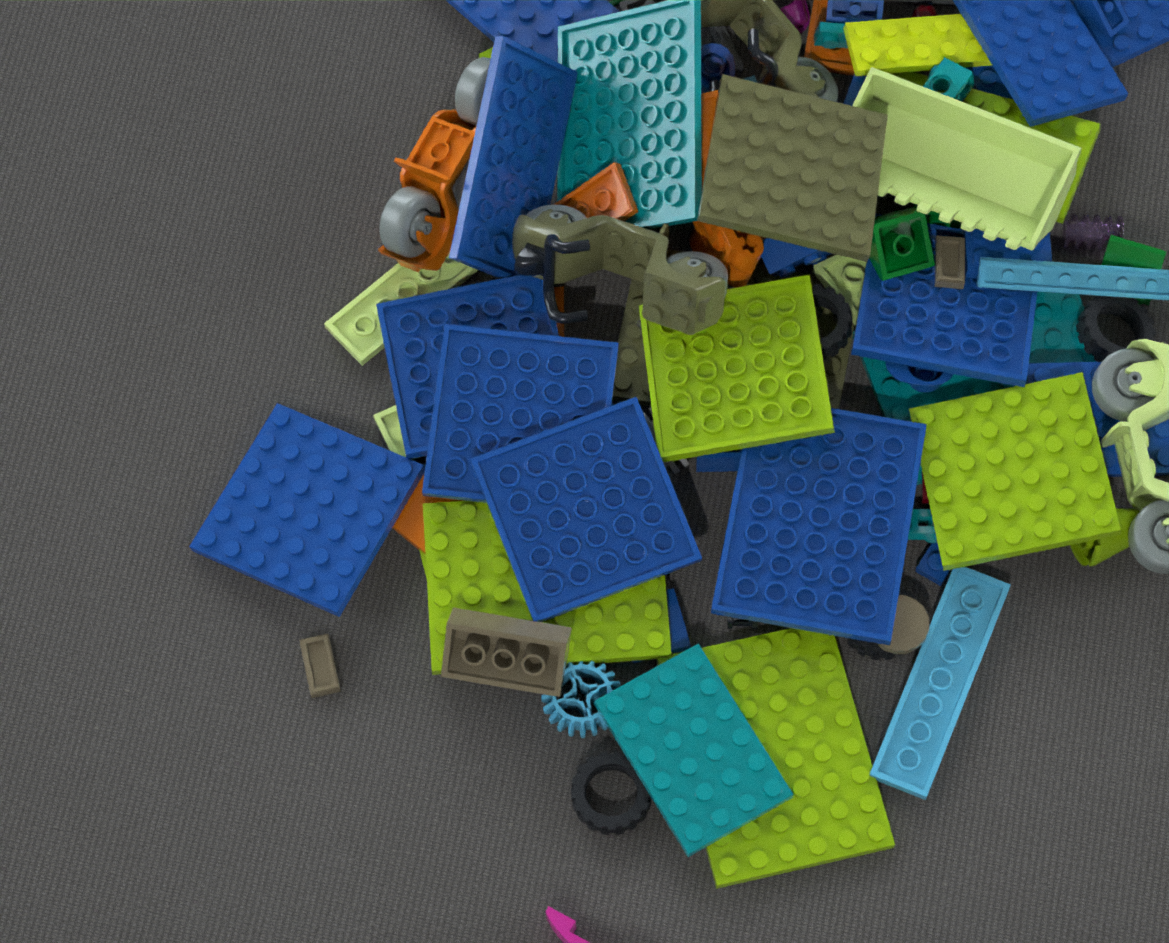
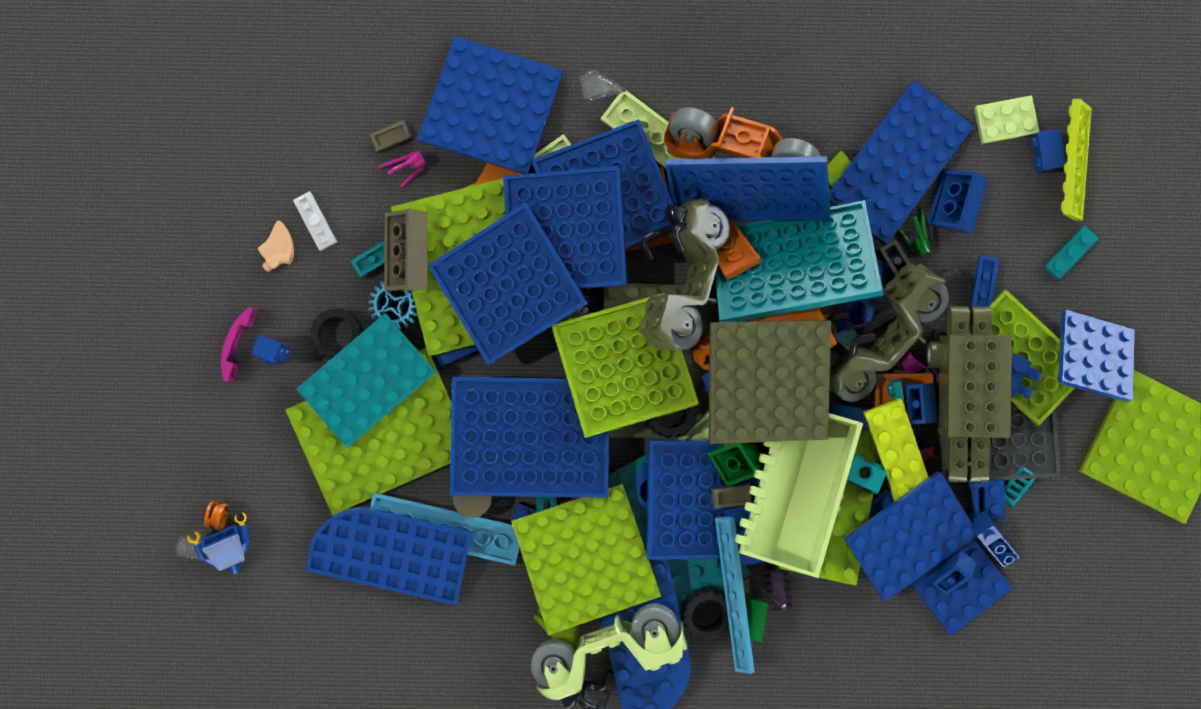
camera: 75 degrees right, 20 degrees up
(313, 351) = (599, 86): none -> clear slope
(368, 635) = (414, 160): none -> dark pink plant
(427, 799) = (315, 221): none -> white plate
(458, 863) = (277, 248): none -> light nougat arm
(505, 720) = (370, 260): none -> teal plate
(619, 887) = (270, 350): none -> blue brick
(967, 759) = (392, 553): none -> blue plate

